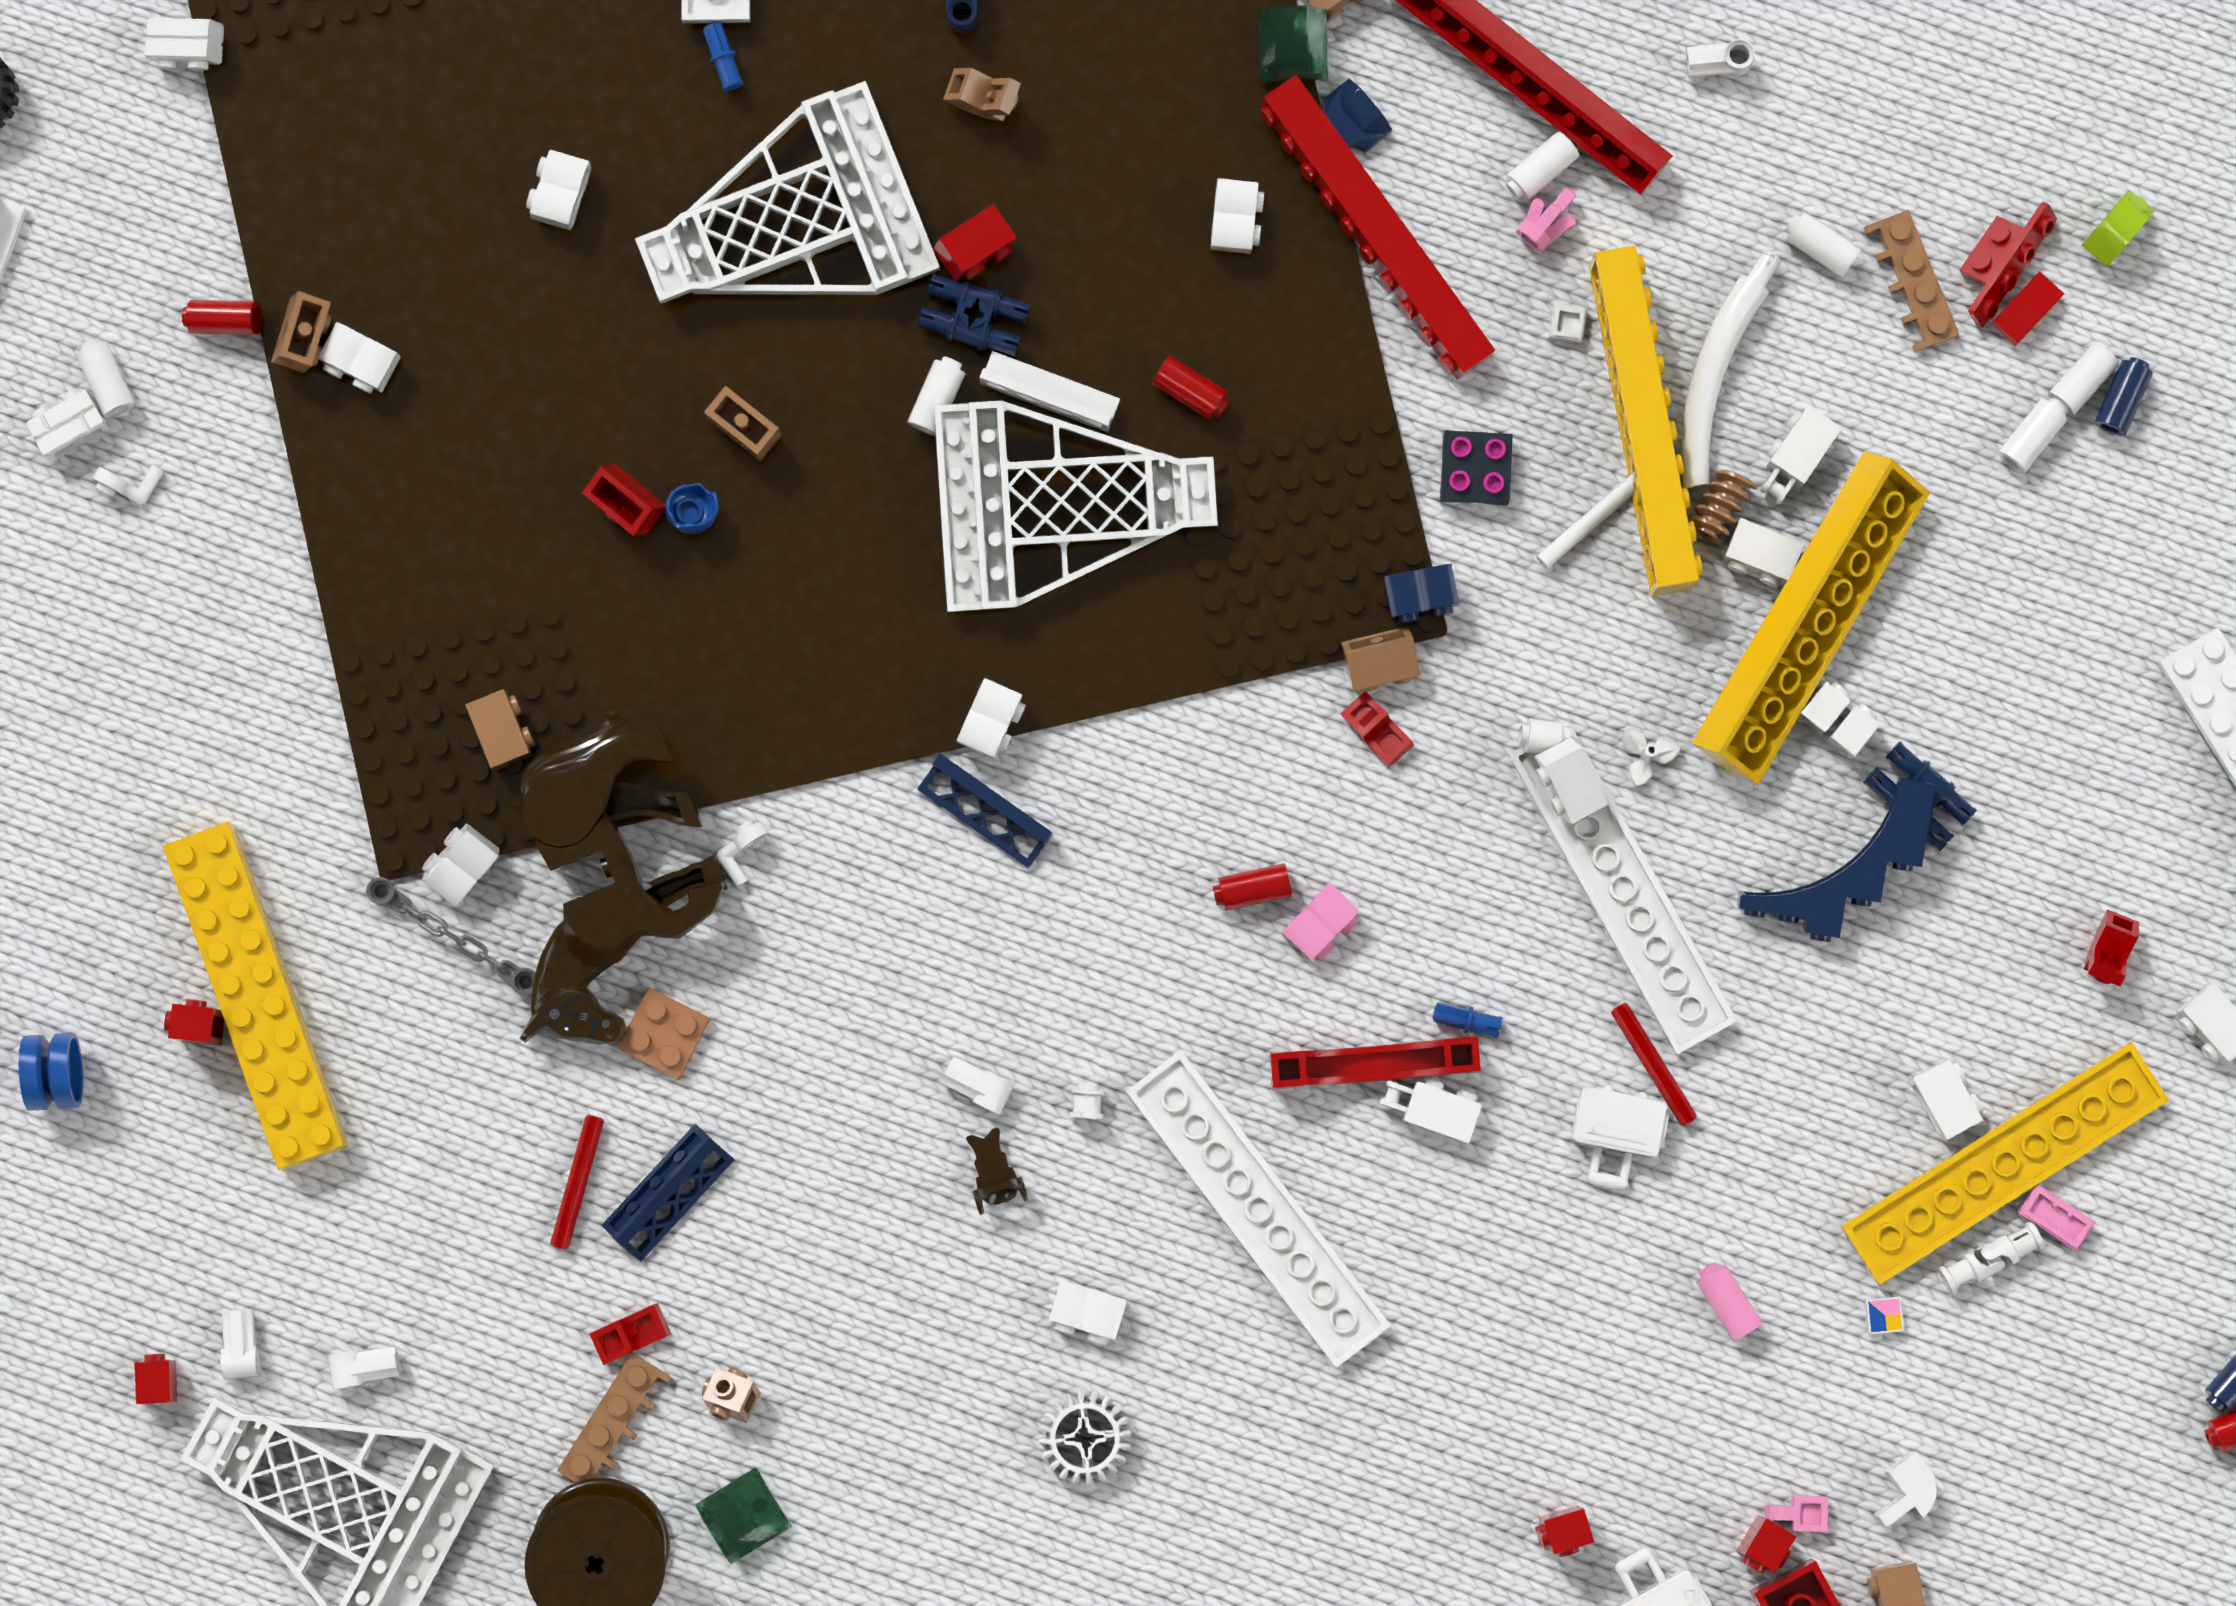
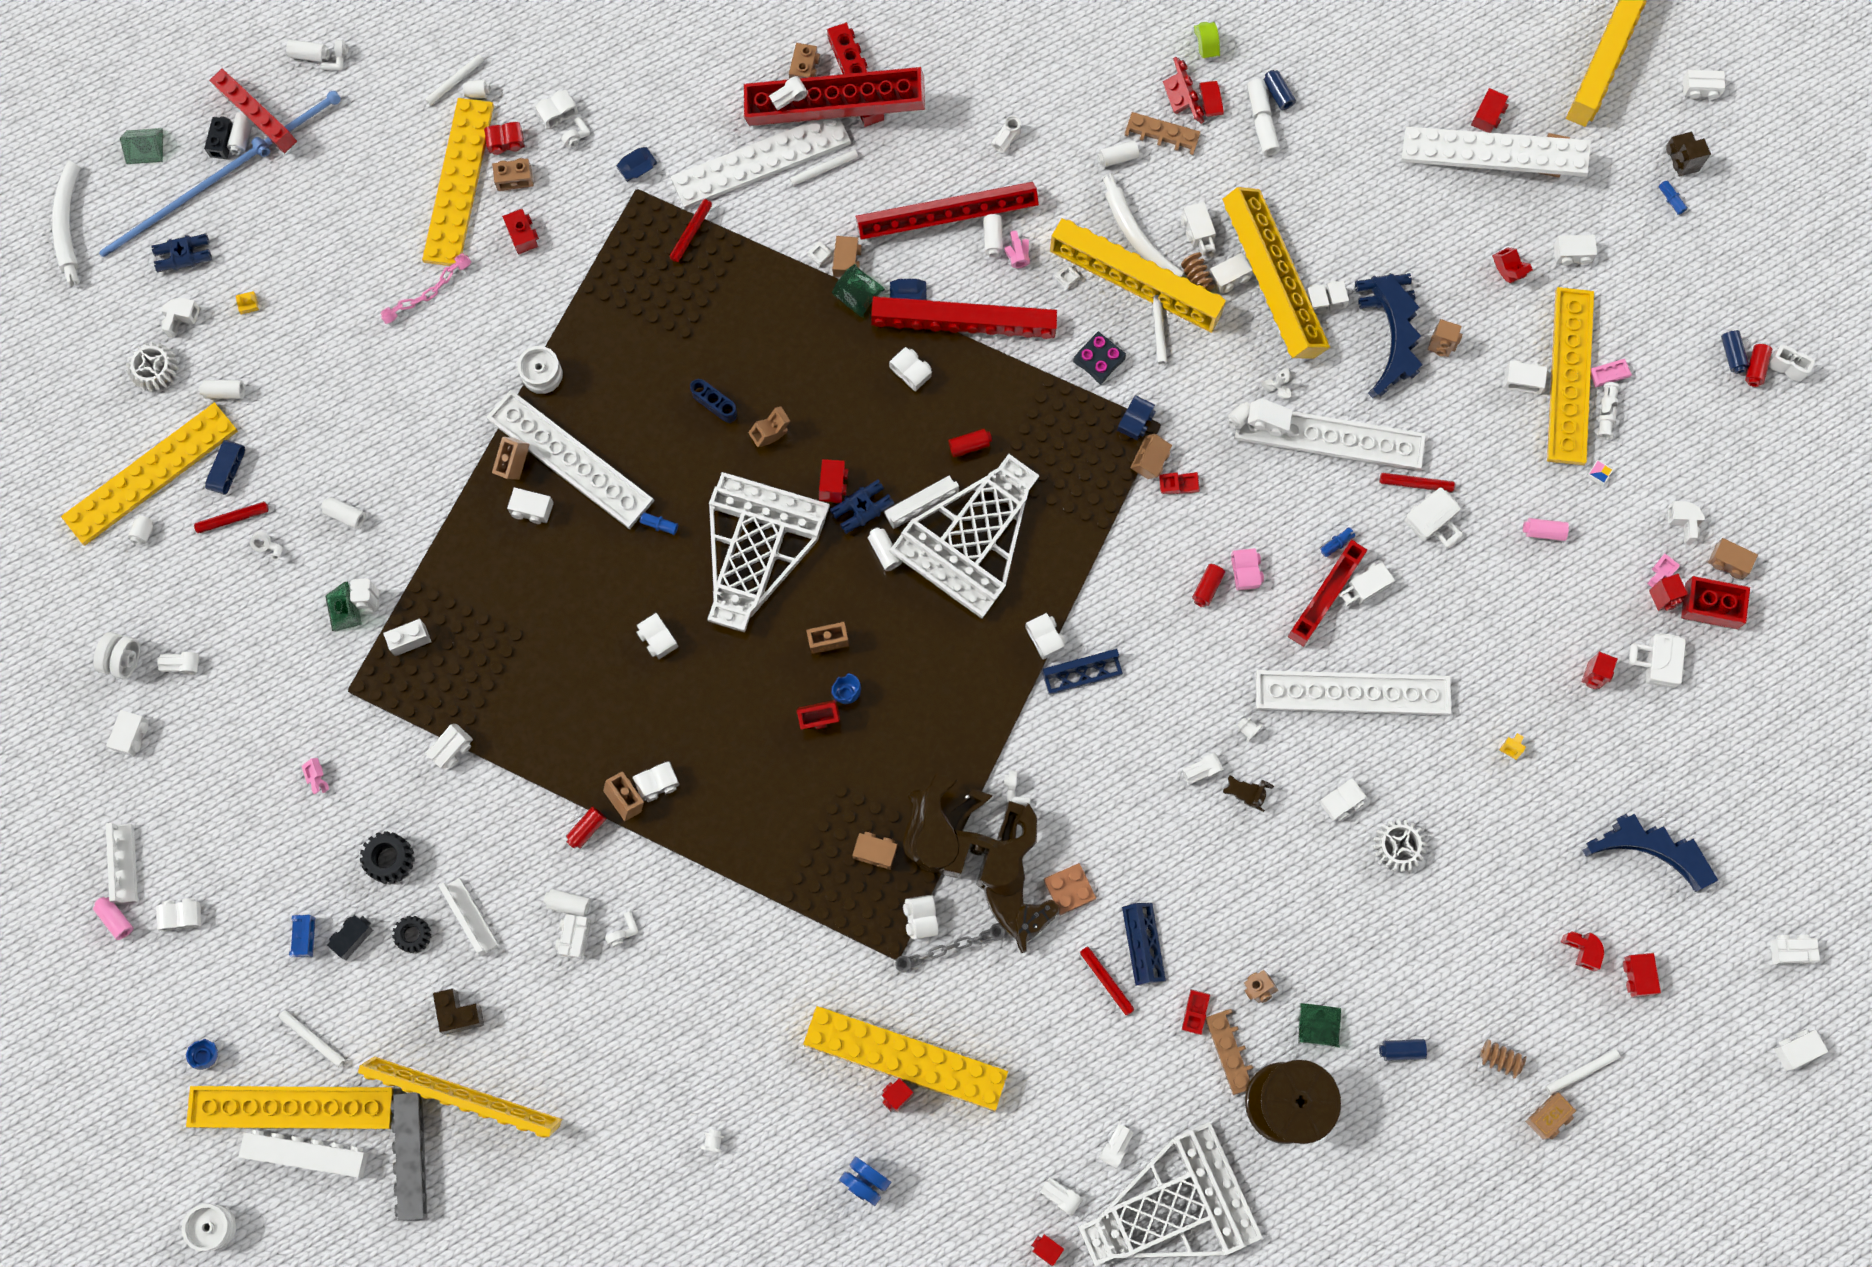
camera: 50 degrees left, 10 degrees down
(1356, 1490) = (1513, 746): none -> yellow tile
(1907, 939) = (1445, 338): none -> medium nougat brick

